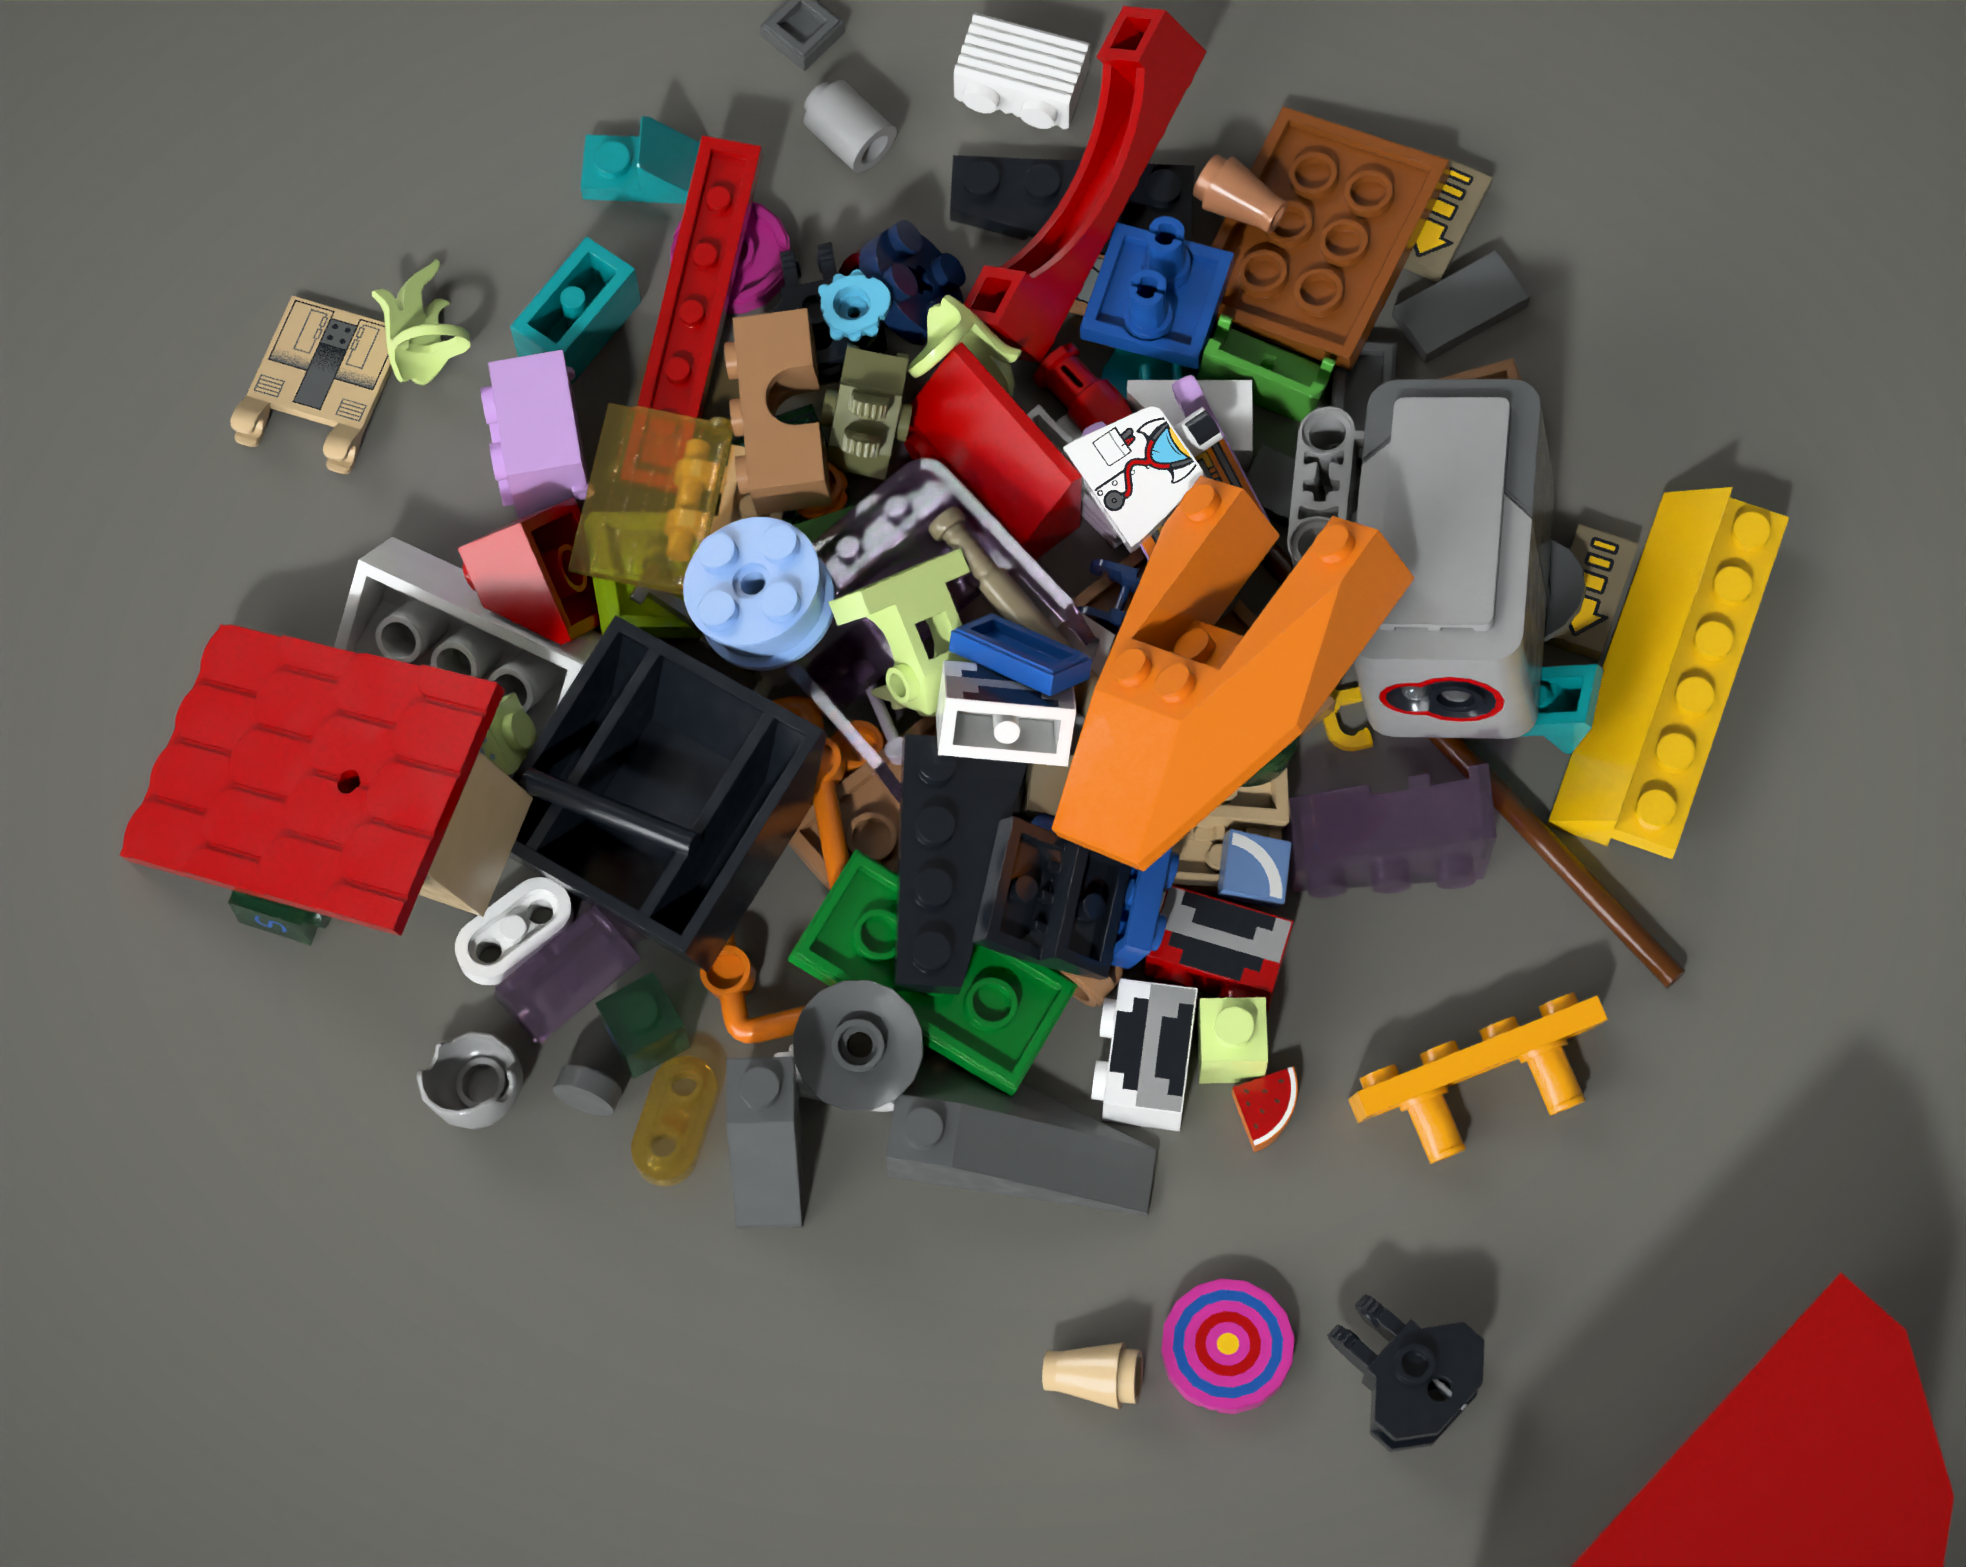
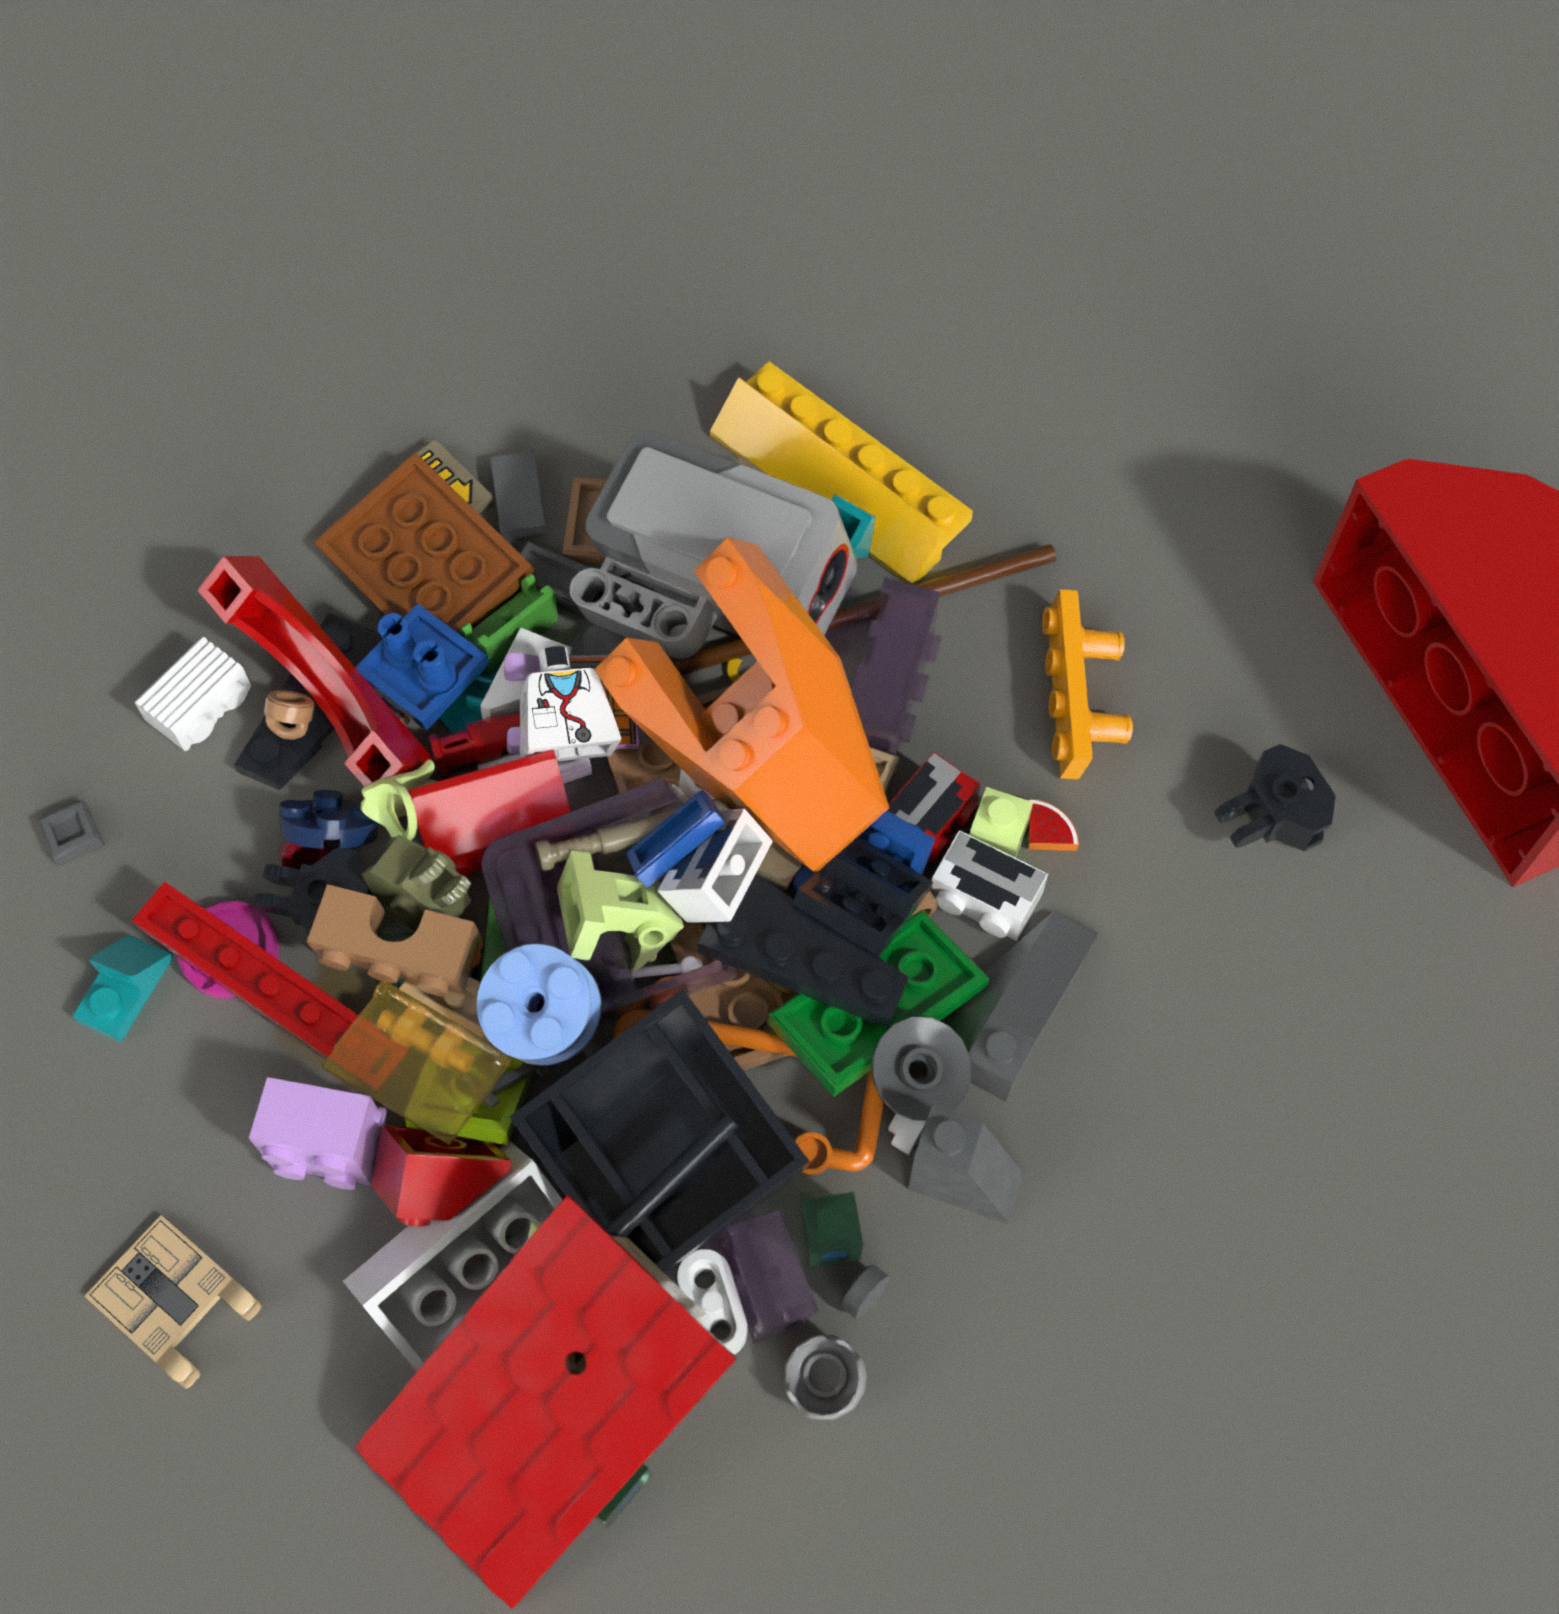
camera: 70 degrees left, 5 degrees down
(415, 331) = (173, 1209): yellowish green piece -> none
(579, 307) = (222, 1069): teal brick -> none
(675, 1118) = (908, 1236): clear yellow plate -> none
(848, 125) = (170, 825): light grey brick -> none
(854, 295) = (334, 847): medium azure animal -> none
(1031, 178) = (288, 708): none -> medium nougat tile
(1096, 1373) = (1209, 1007): tan cone -> none
(1129, 581) = (631, 764): dark blue piece -> none
(1227, 1346) = (1213, 917): dark pink tile -> none
(1236, 193) = (370, 588): nougat cone -> none
(1254, 869) = (891, 762): medium blue tile -> none

